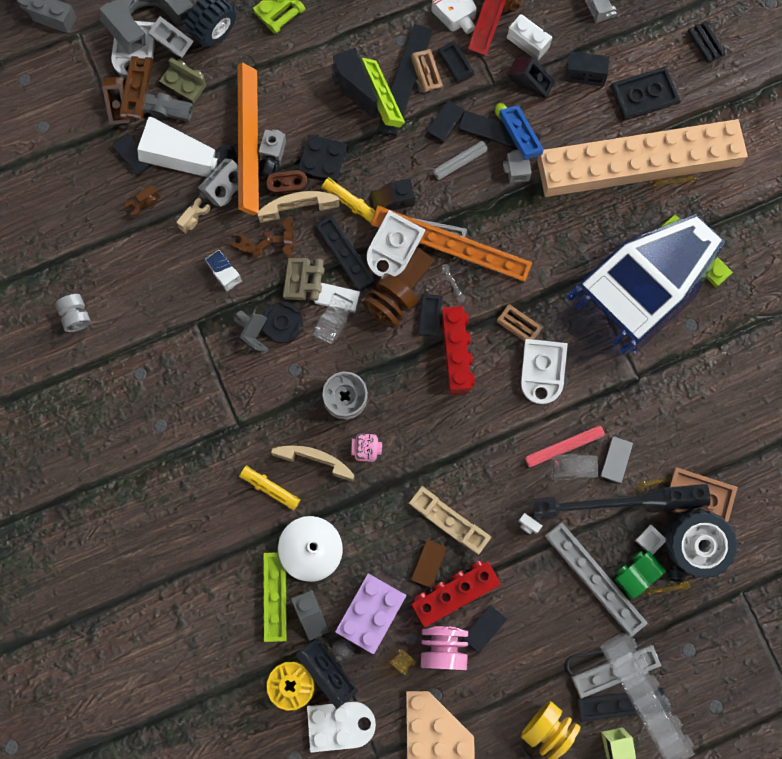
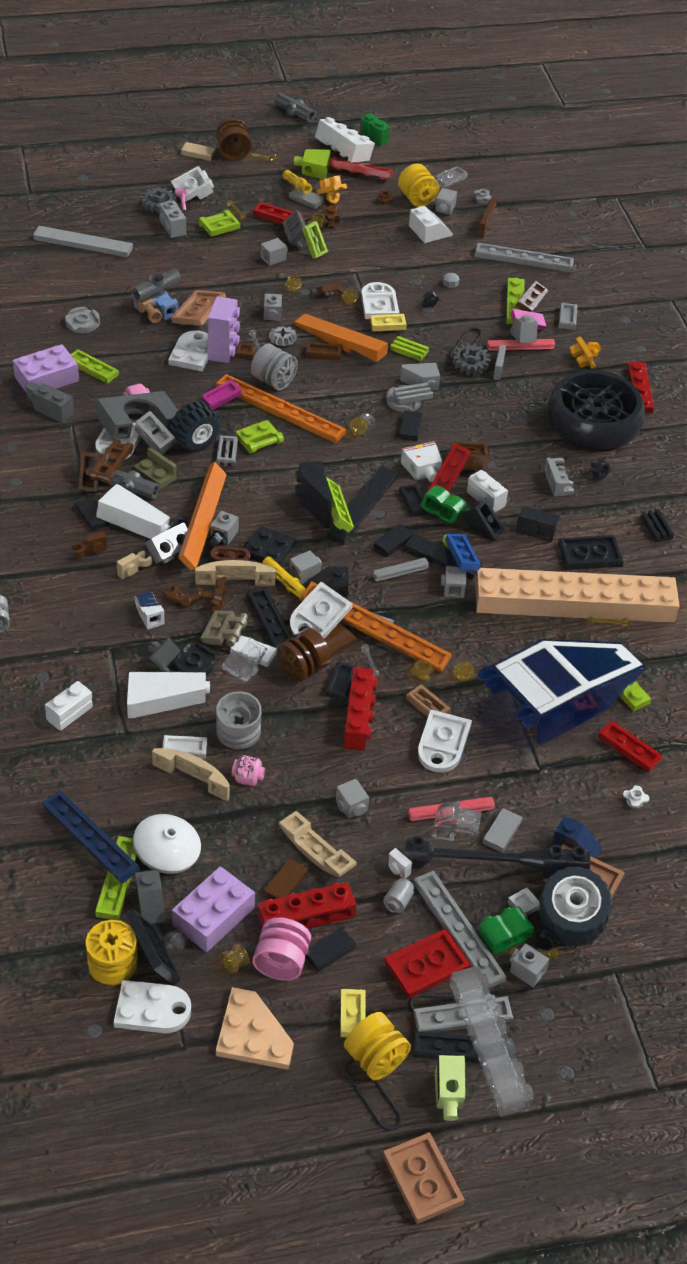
camera: 10 degrees right, 30 degrees down
(176, 410) = (68, 705): none -> white brick
(238, 562) = (91, 837): none -> dark blue plate
(251, 50) = (226, 459): none -> light grey tile
(262, 371) = (164, 691): none -> white slope
(267, 486) = (124, 772): yellow pin -> none
(298, 429) = (193, 745): none -> white tile
(365, 180) = (305, 566): none -> light grey brick
(430, 86) = (384, 509): medium nougat tile -> none
(471, 460) = (352, 799): none -> light grey brick
(488, 66) = (443, 504): none -> green brick
(512, 282) = (422, 669): none -> clear yellow plate
(519, 694) = (351, 1009): none -> light yellow plate
(535, 559) = (398, 895): none -> light grey brick
(547, 278) = (464, 671): none -> clear yellow plate
(575, 626) = (426, 963): none -> red plate
(666, 608) = (528, 965): none -> light grey brick
(687, 459) = (576, 834): none -> dark blue slope
(720, 335) = (630, 746): none -> red plate
(728, 393) = (632, 800): none -> white plate

